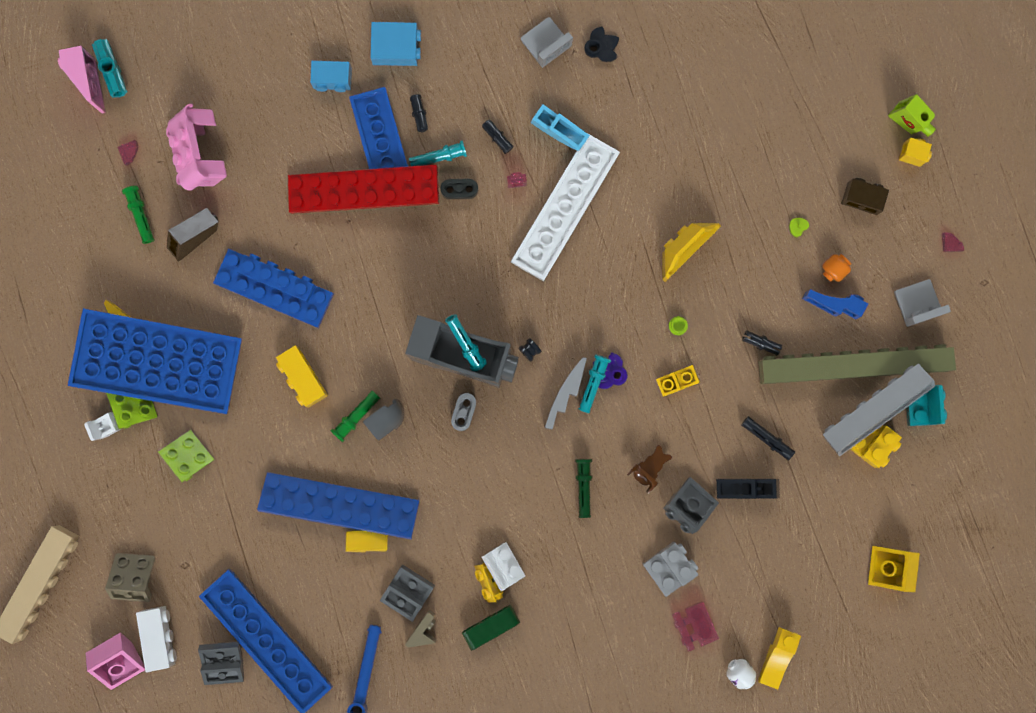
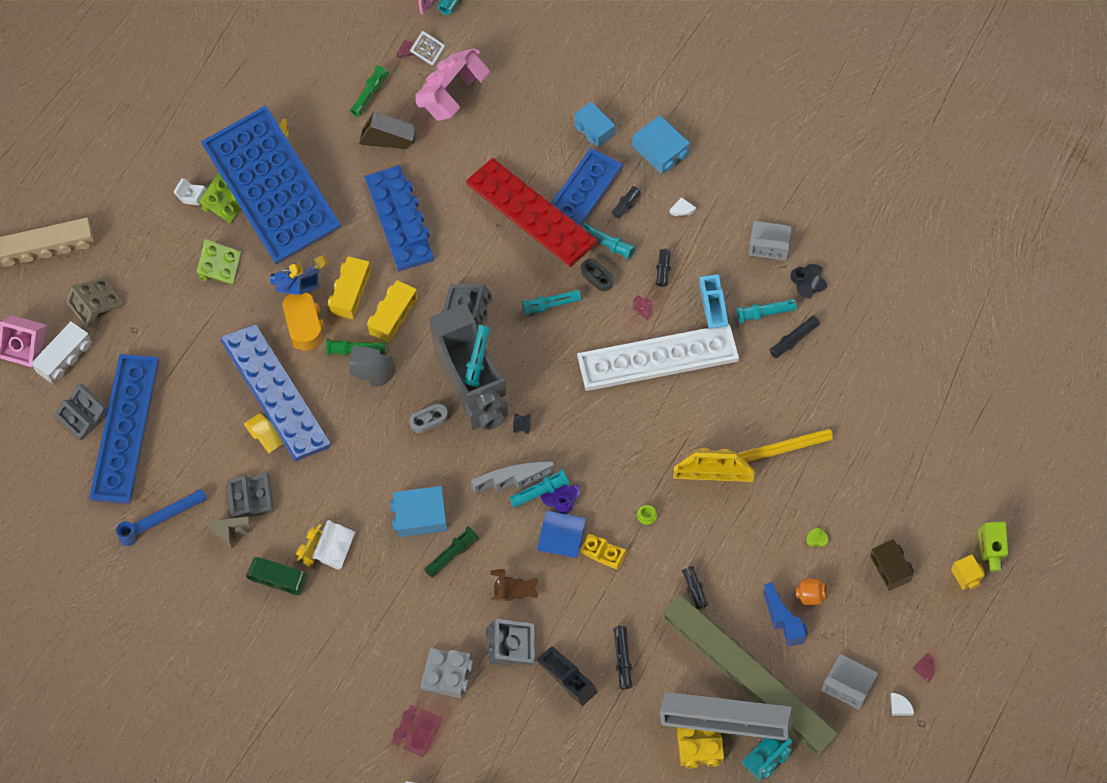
camera: 55 degrees right, 20 degrees down
(141, 136) = (427, 48): none -> sticker
(261, 412) = (298, 280): none -> blue torso
(297, 435) = (303, 321): none -> light orange brick
(350, 362) = (392, 311): none -> yellow brick
(396, 303) = (474, 295): none -> dark grey plate
(446, 249) = (573, 296): none -> teal pin
(461, 77) = (682, 207): none -> white tile
(532, 483) = (418, 511): none -> dark azure brick
(594, 104) = (757, 311): none -> teal pin
(637, 97) = (788, 342): none -> black pin
(640, 398) = (561, 534): none -> blue slope
(713, 183) = (786, 445): none -> yellow axle
(963, 285) = (900, 705): none -> white tile

